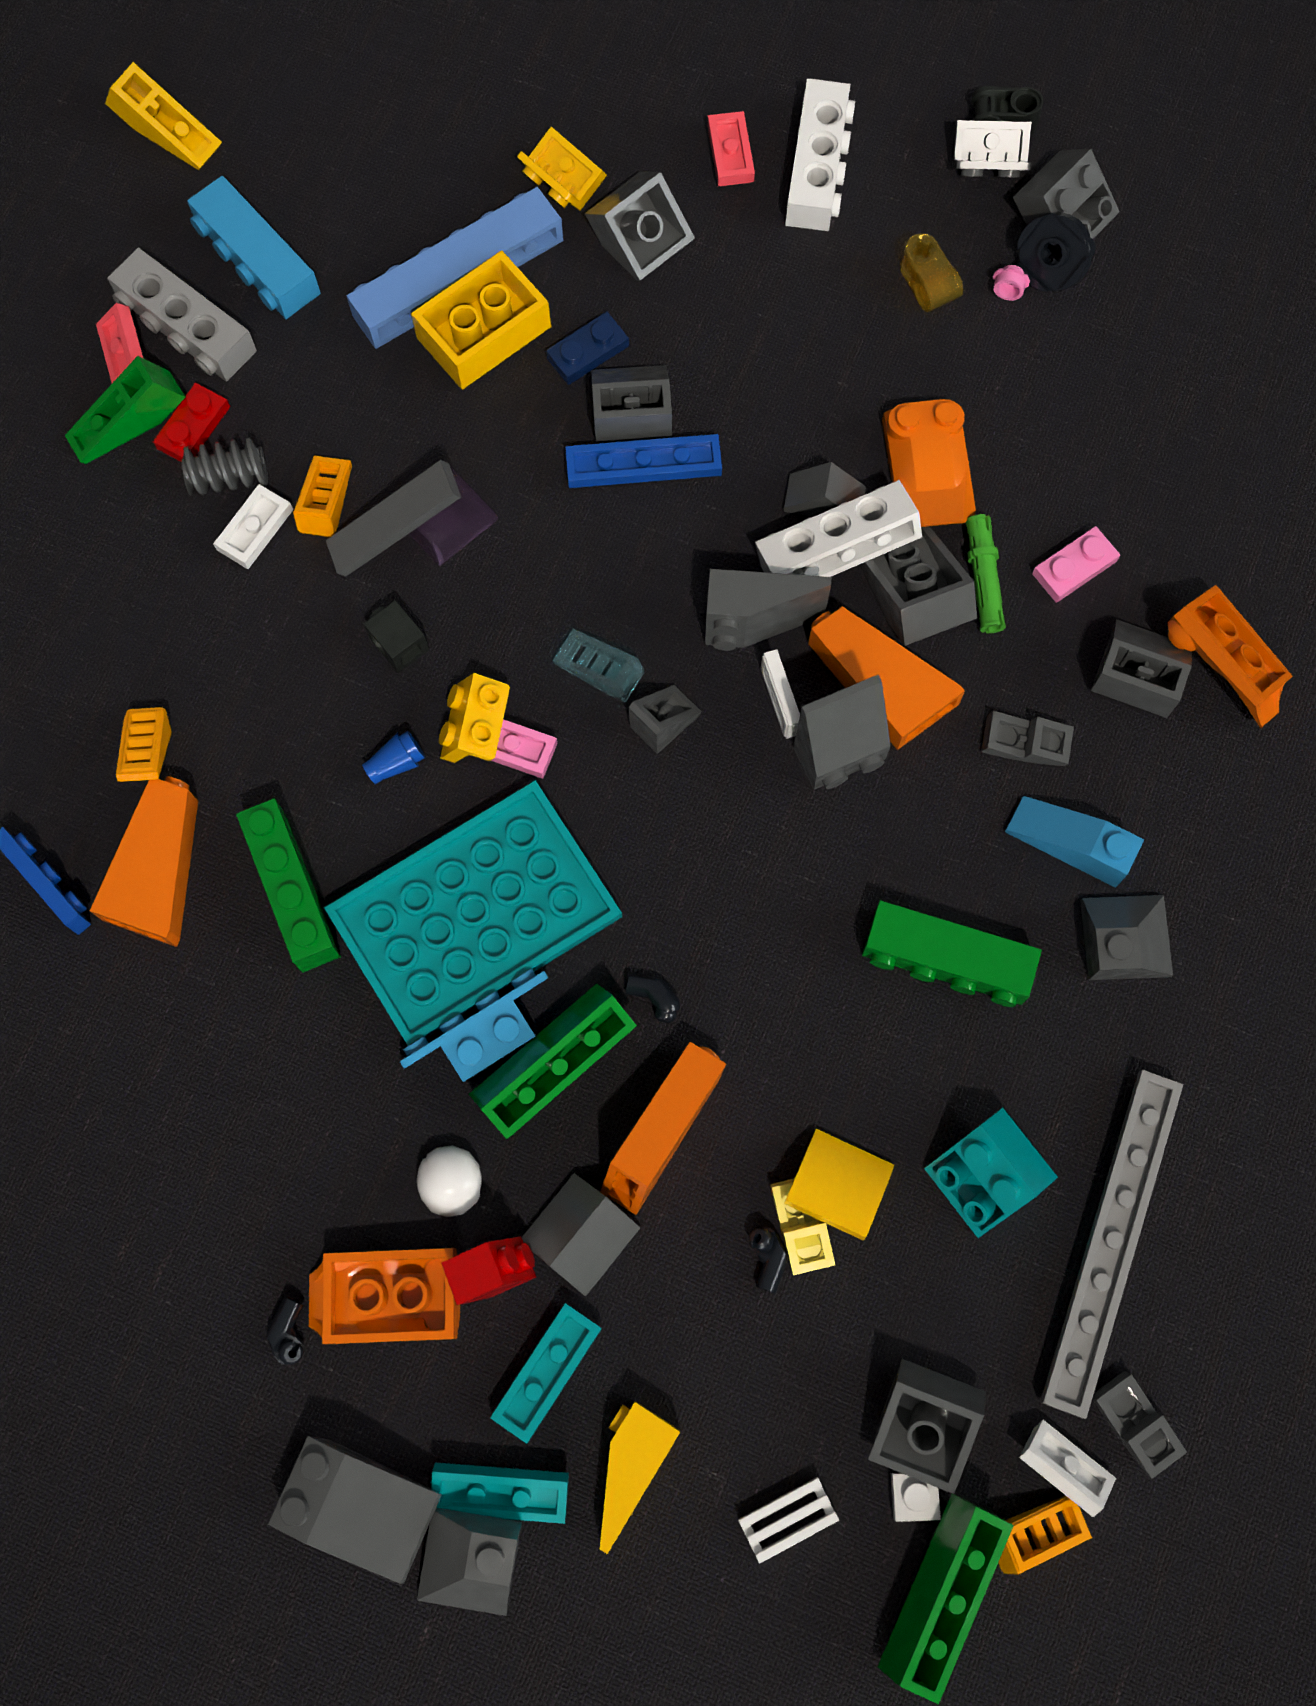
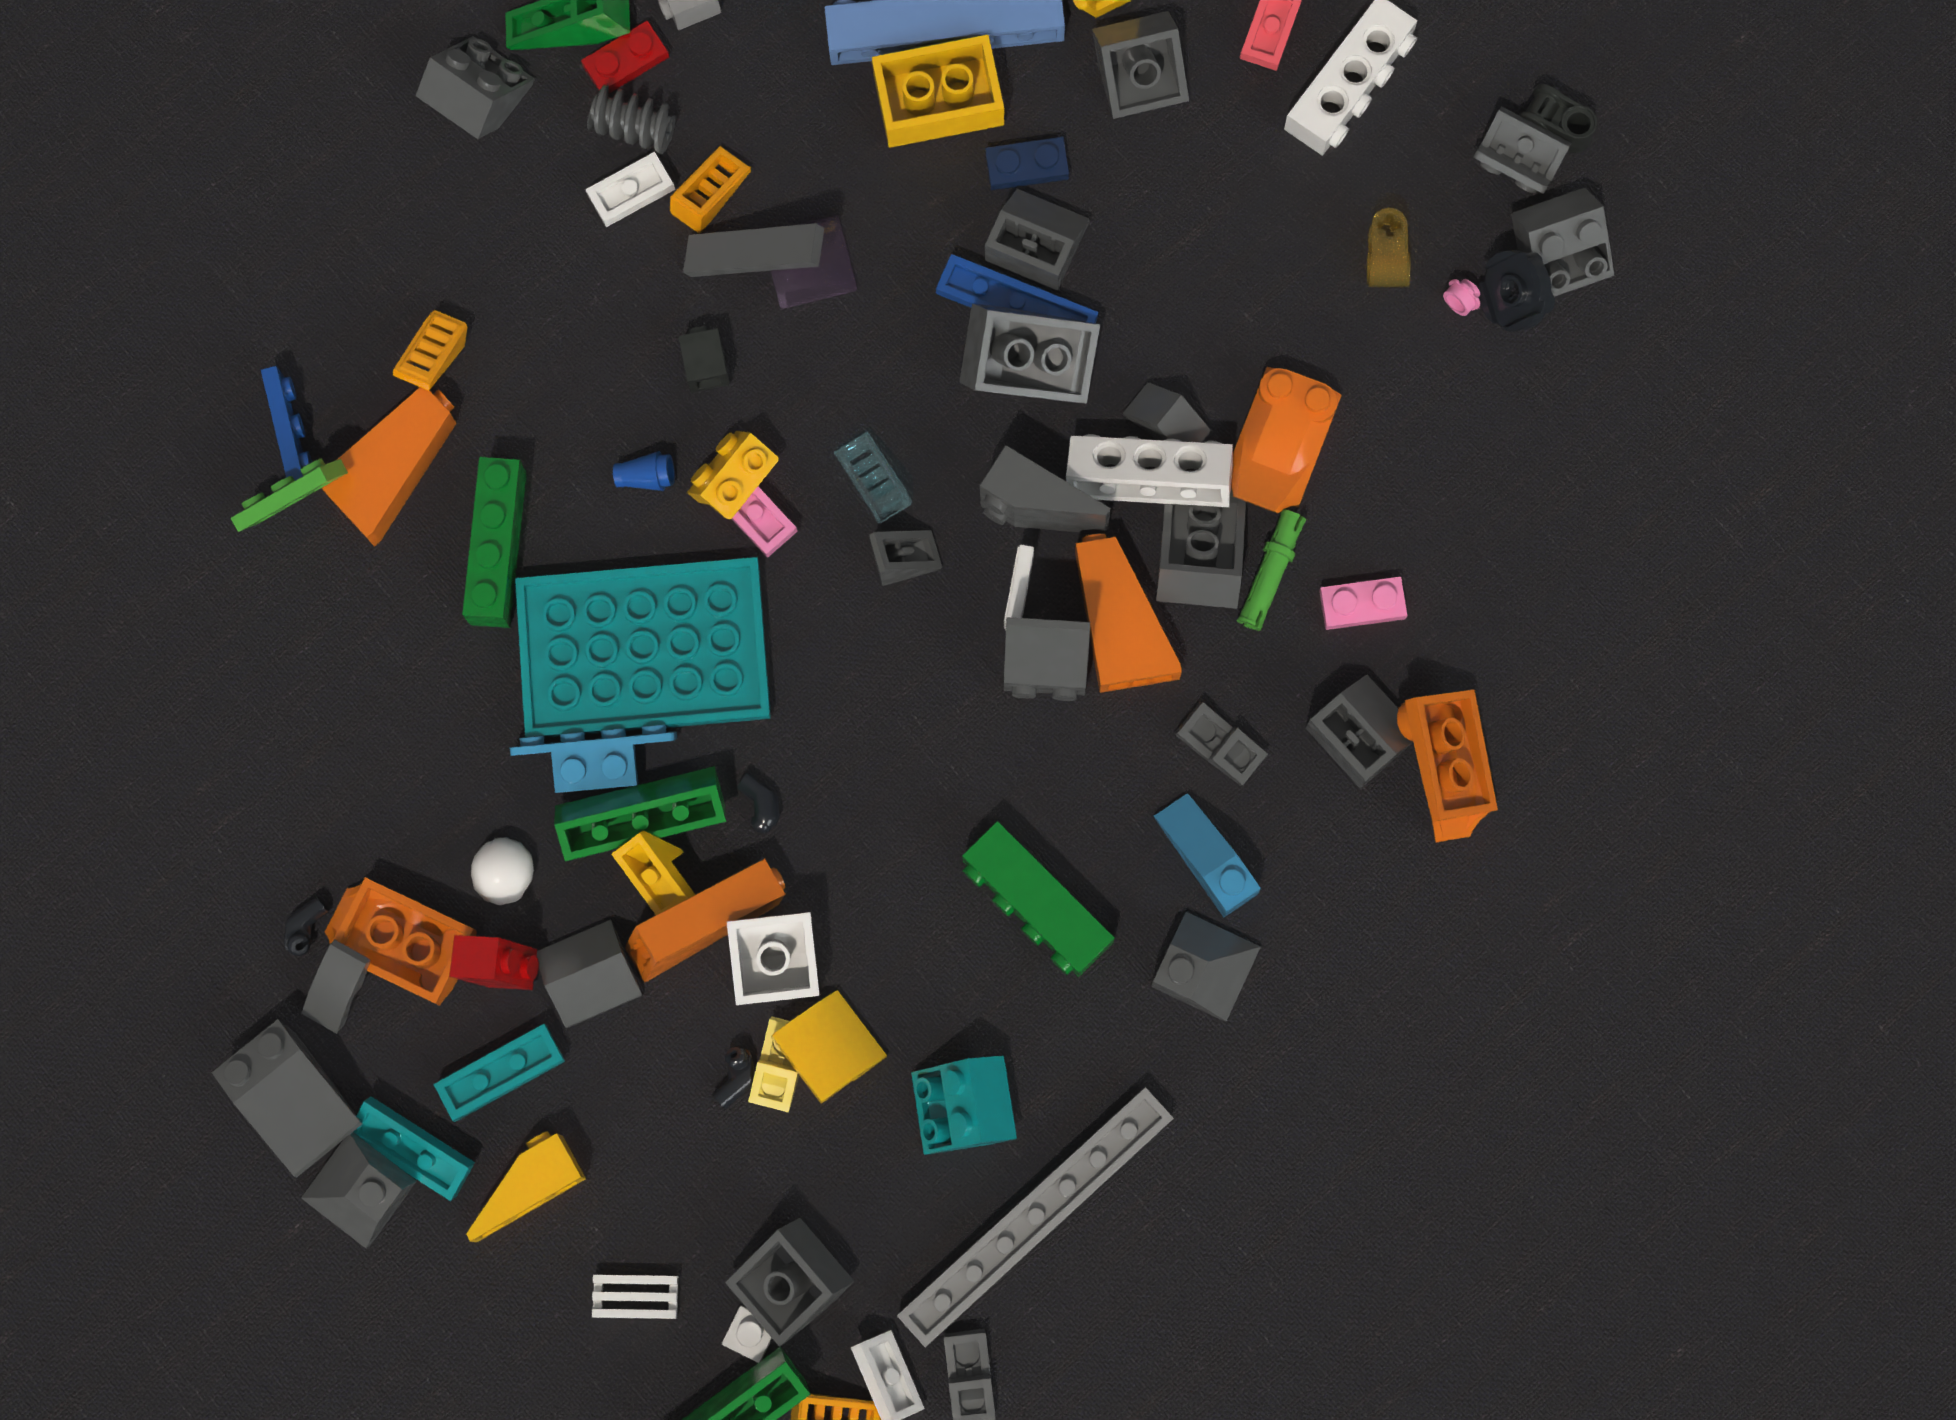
camera: 30 degrees right, 5 degrees up
(66, 505) = (473, 86): none -> dark grey slope
(71, 933) = (288, 492): none -> bright green plate
(347, 1373) = (335, 985): none -> dark grey slope
(594, 1107) = (650, 869): none -> yellow slope
(678, 493) = (1028, 354): none -> dark grey slope
(749, 1129) = (773, 958): none -> white slope

